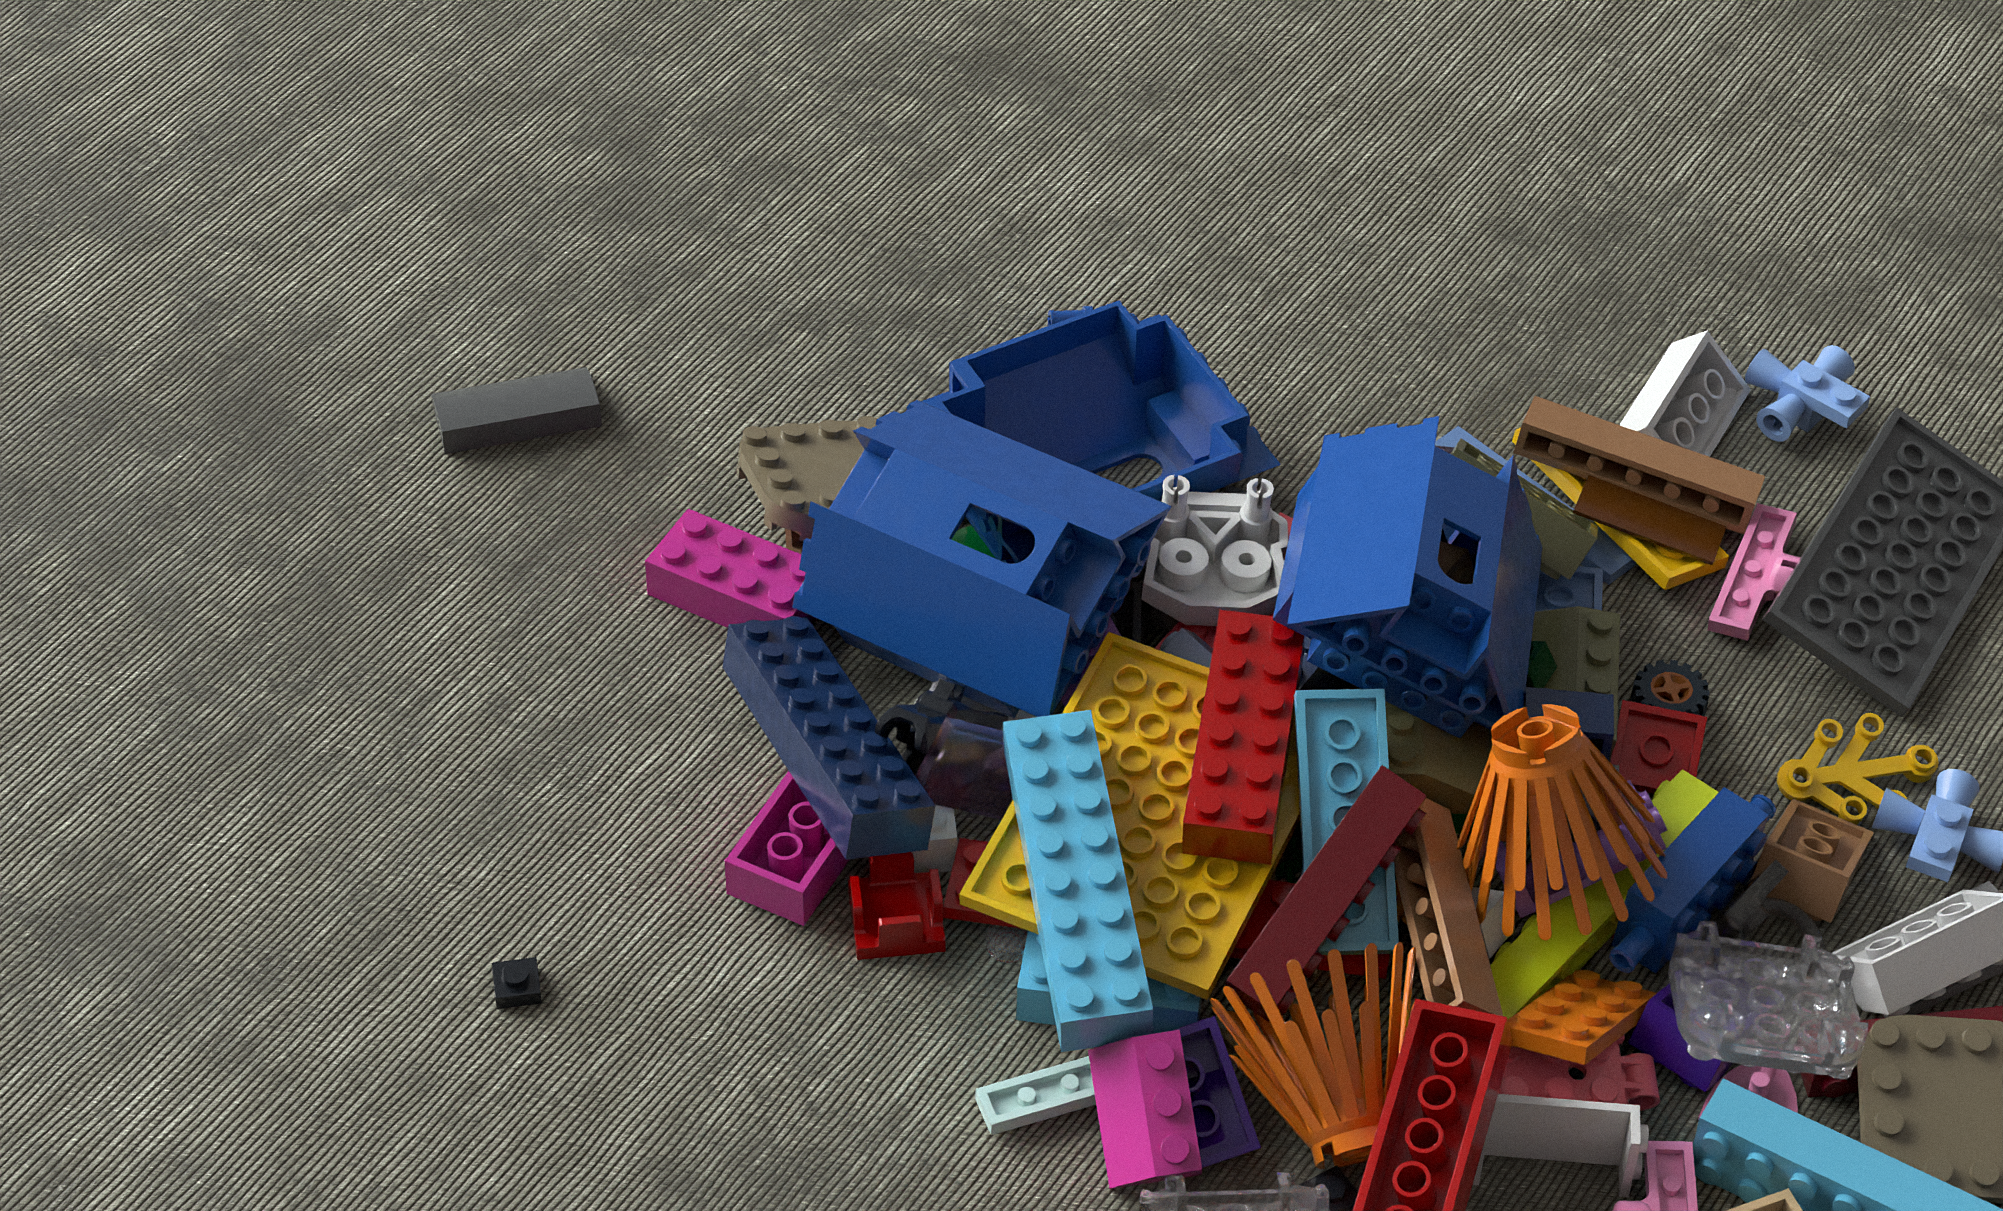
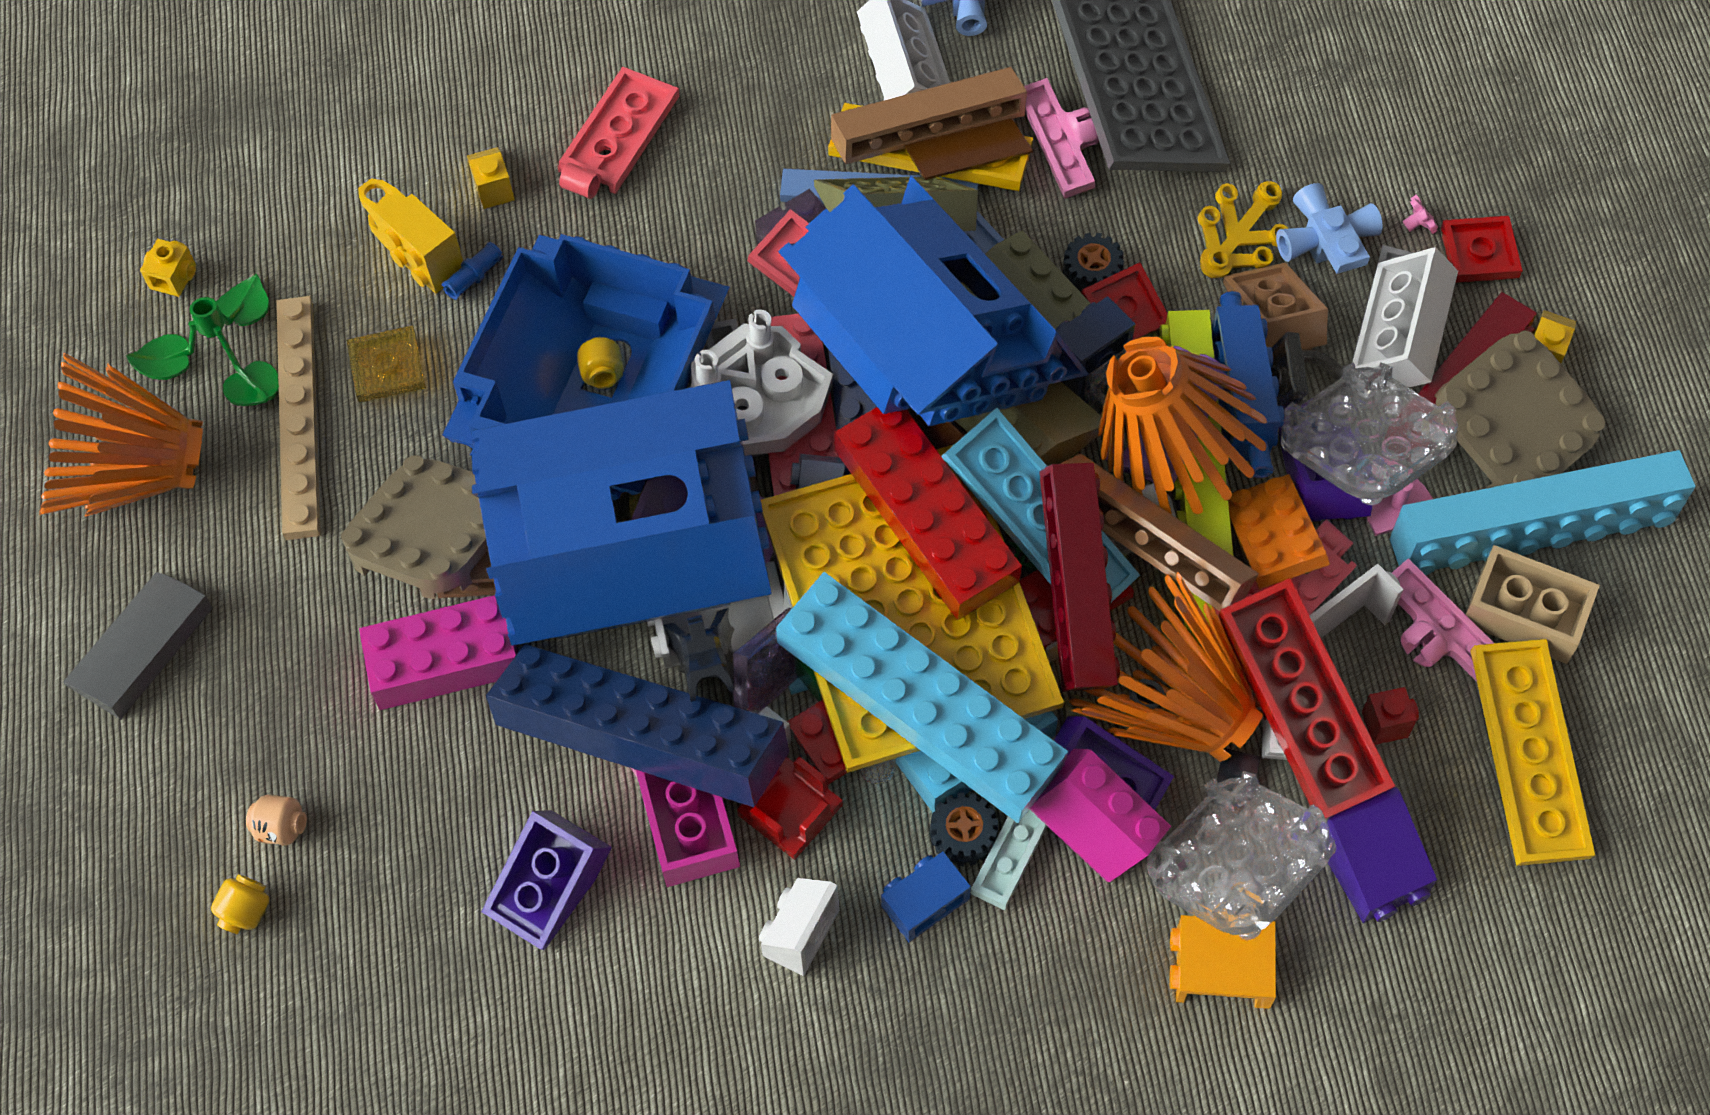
camera: 40 degrees left, 15 degrees up
(384, 643) = (240, 904): none -> yellow head
(475, 603) = (276, 820): none -> light nougat head
(516, 983) = (597, 1075): black plate -> none
(638, 805) = (545, 877): none -> dark purple slope
(679, 241) = (149, 449): none -> orange plant
(769, 216) = (244, 305): none -> green plant
(801, 1002) = (800, 924): none -> white slope
(820, 334) = (298, 419): none -> tan plate
(837, 148) = (168, 267): none -> yellow brick
(930, 1065) = (925, 895): none -> blue brick
(933, 338) = (386, 364): none -> clear yellow plate
(1017, 1029) = (964, 815): none -> black wheel
(1062, 253) = (412, 235): none -> yellow brick
(1115, 457) = (600, 362): none -> yellow head
(1183, 260) = (491, 177): none -> yellow slope
(1341, 295) = (619, 123): none -> coral hinge

